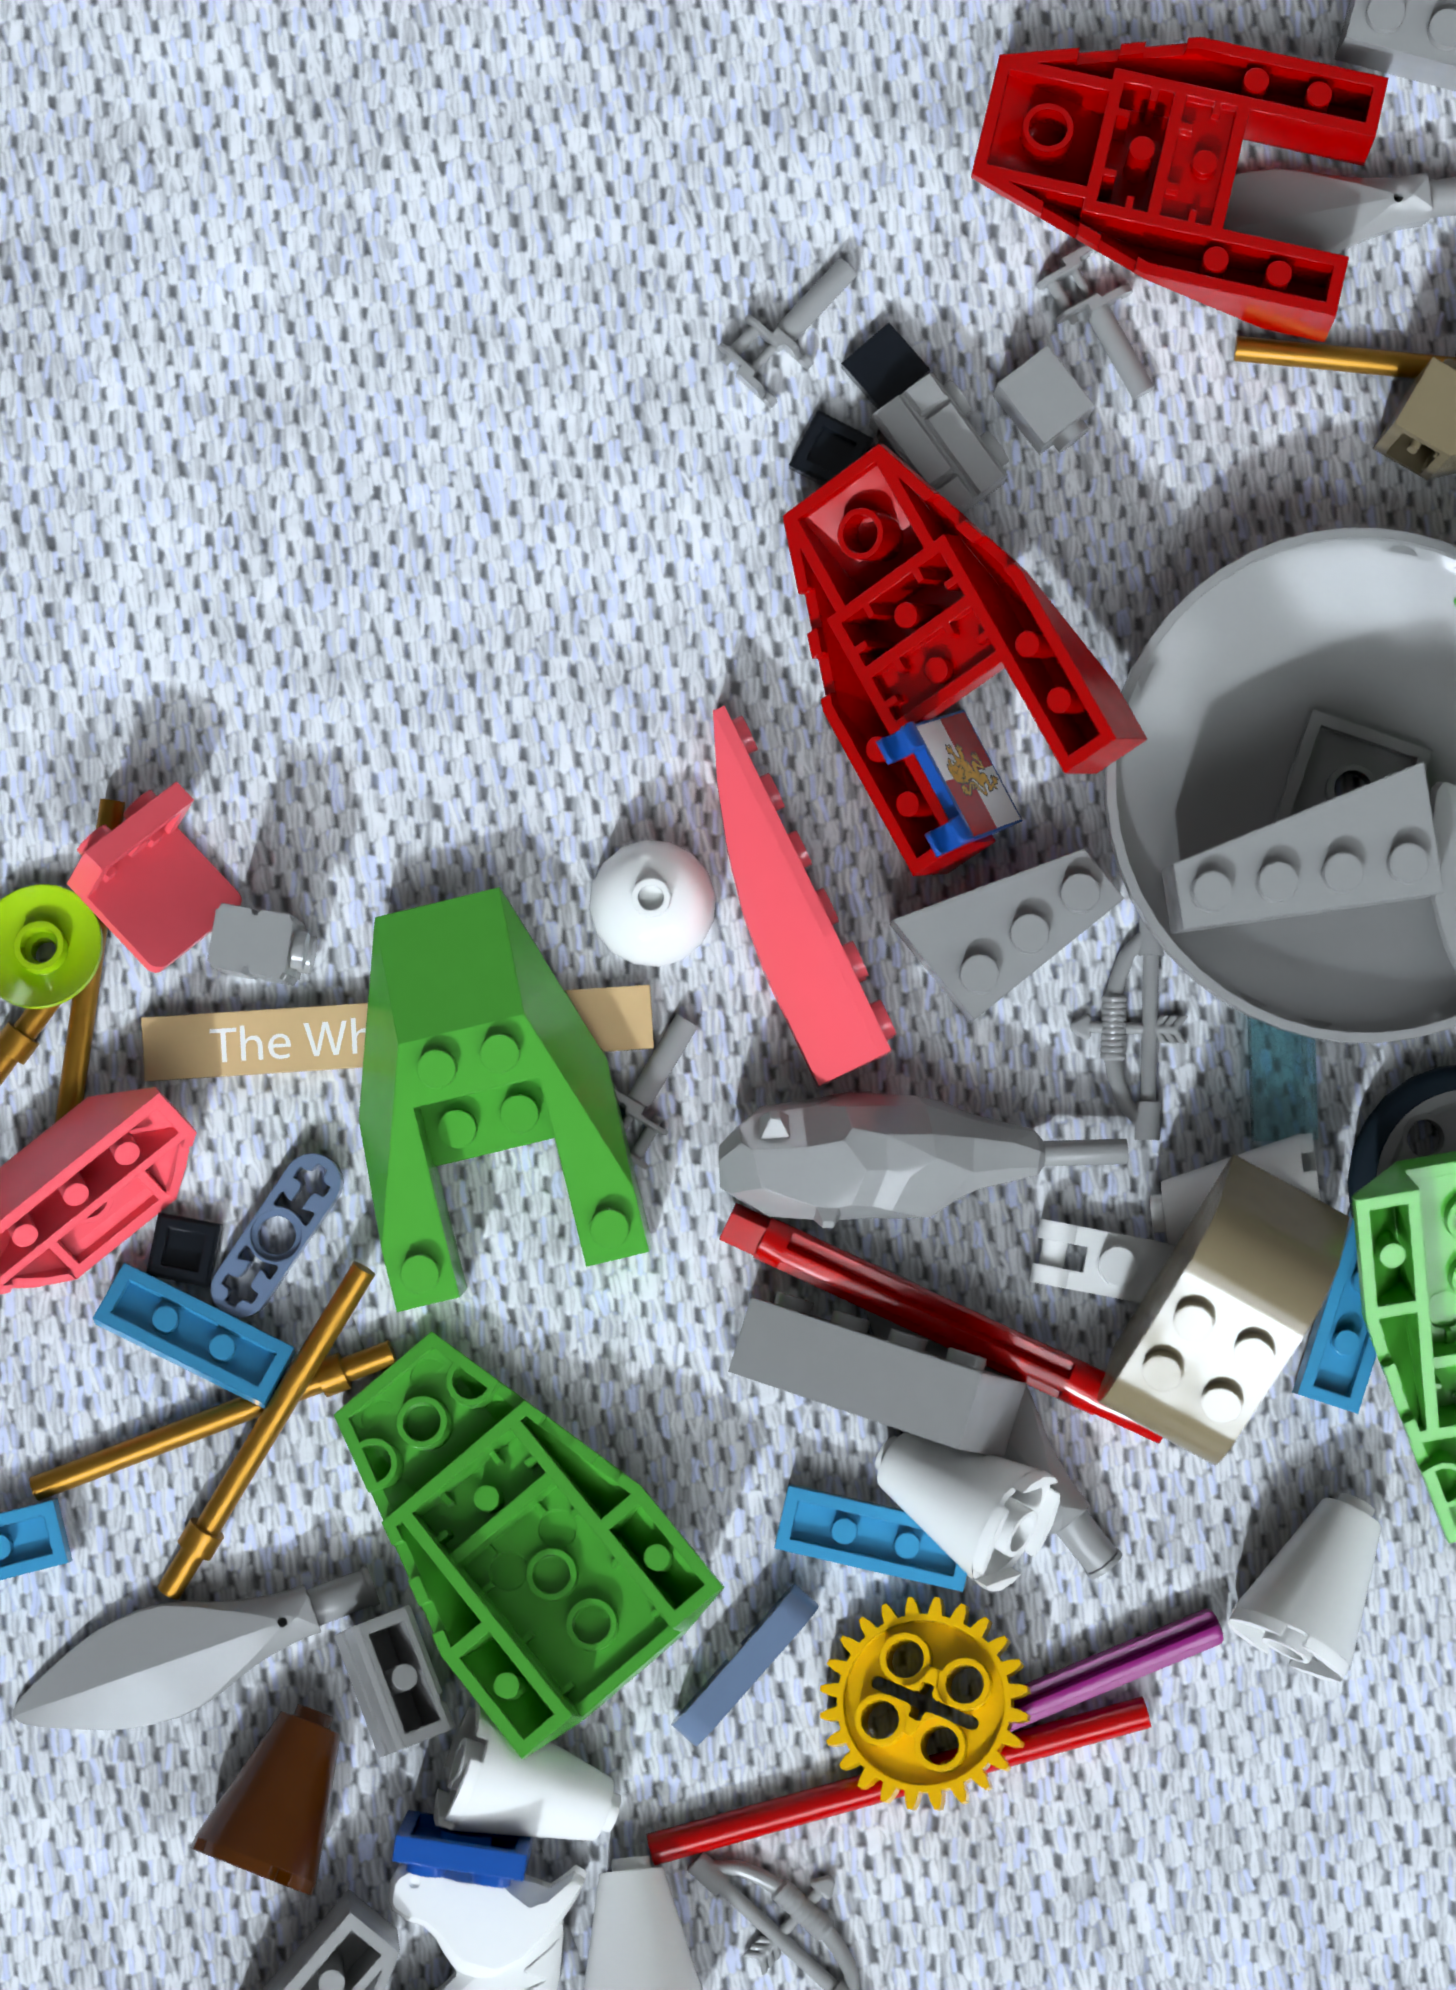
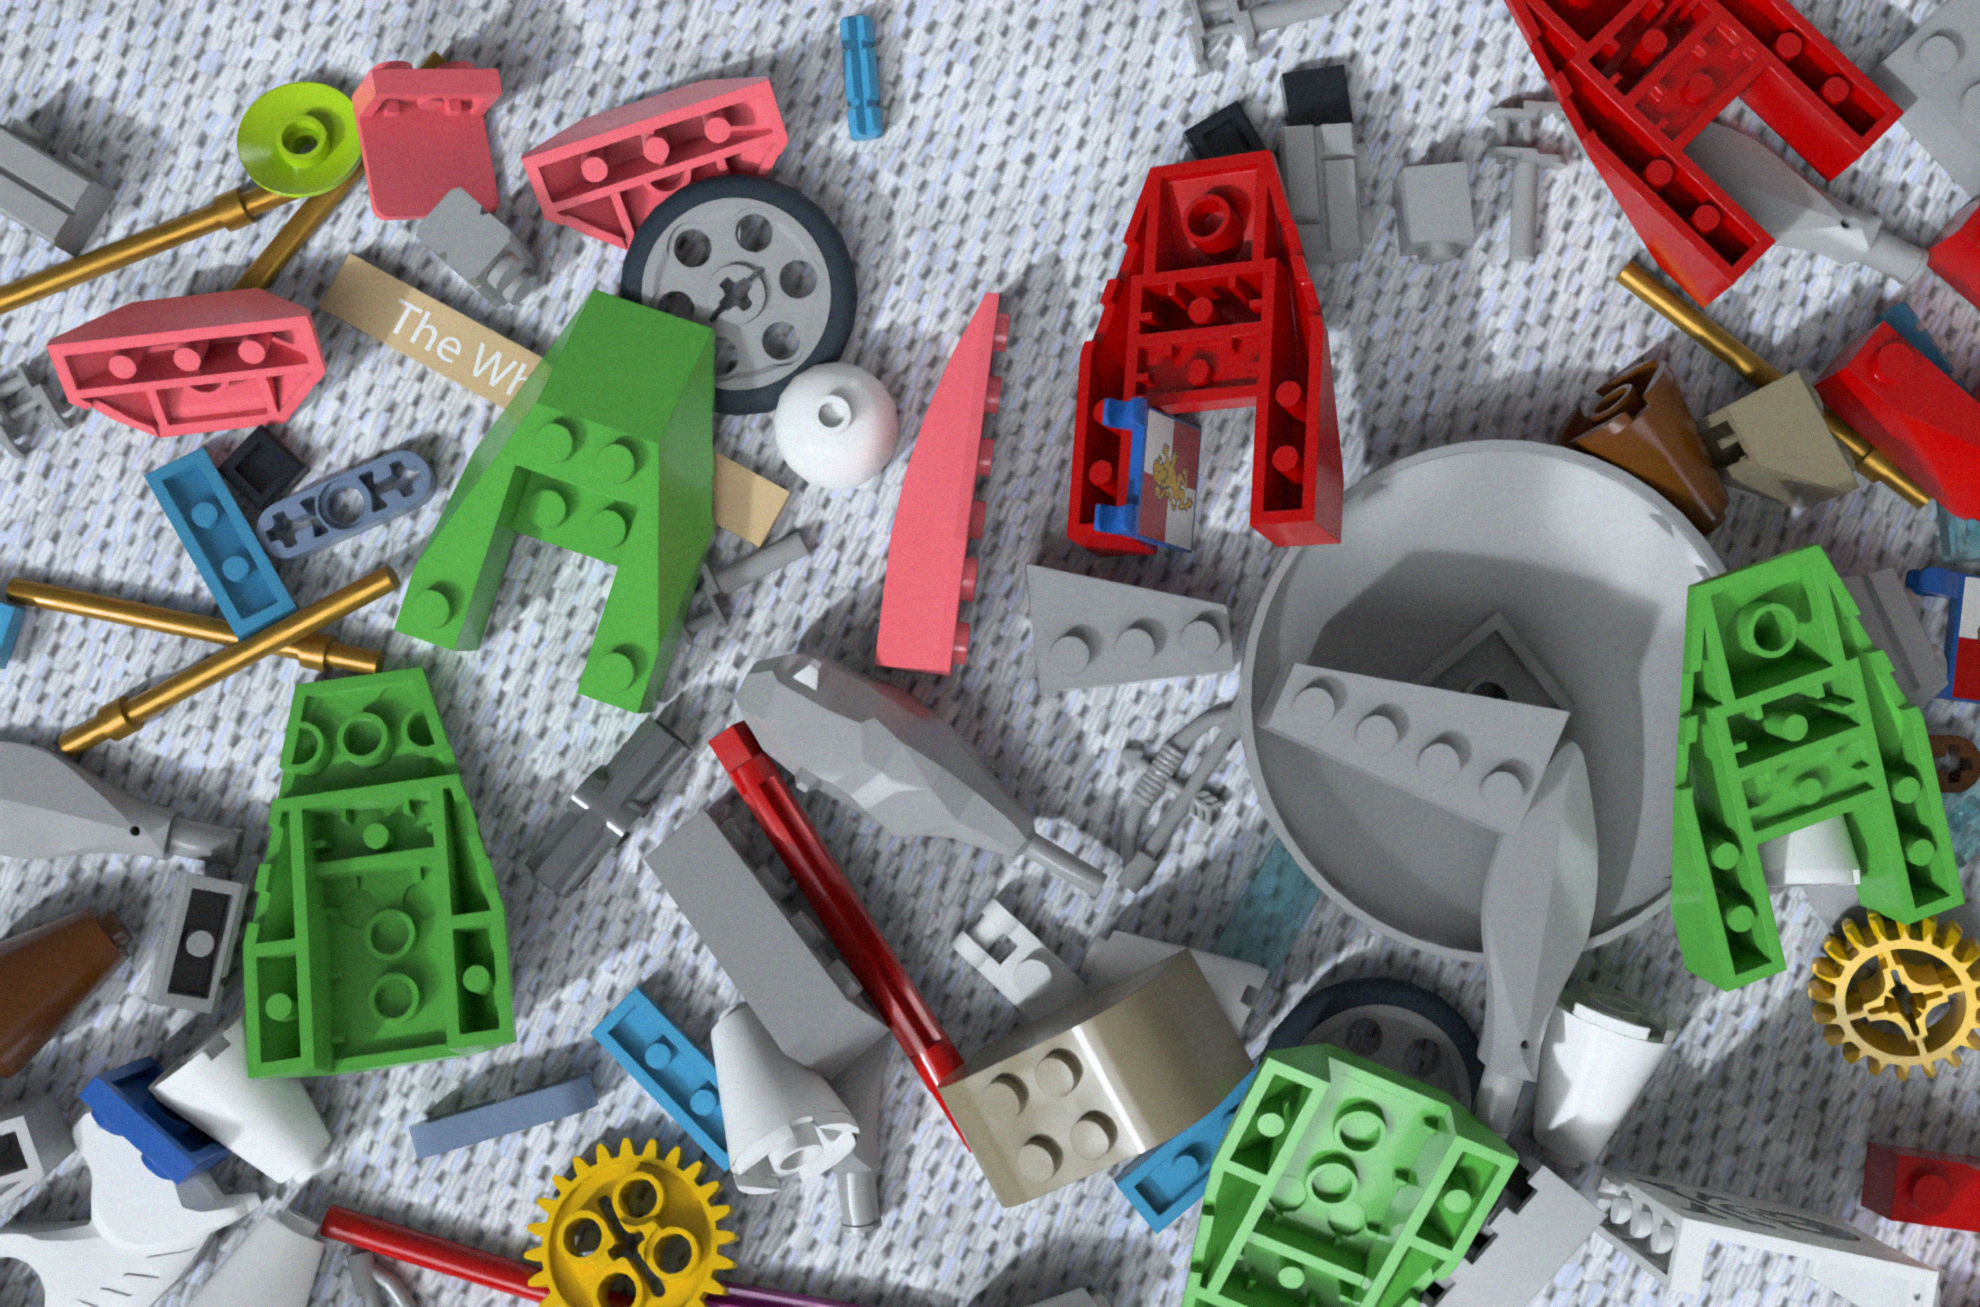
camera: 30 degrees right, 0 degrees up
(362, 770) = (627, 160): none -> coral wedge
(483, 591) = (861, 77): none -> dark azure axle
(520, 759) = (799, 235): none -> light grey wedge
(667, 1349) = (607, 807): none -> dark grey piece
(1352, 483) = (1654, 437): none -> reddish brown cone

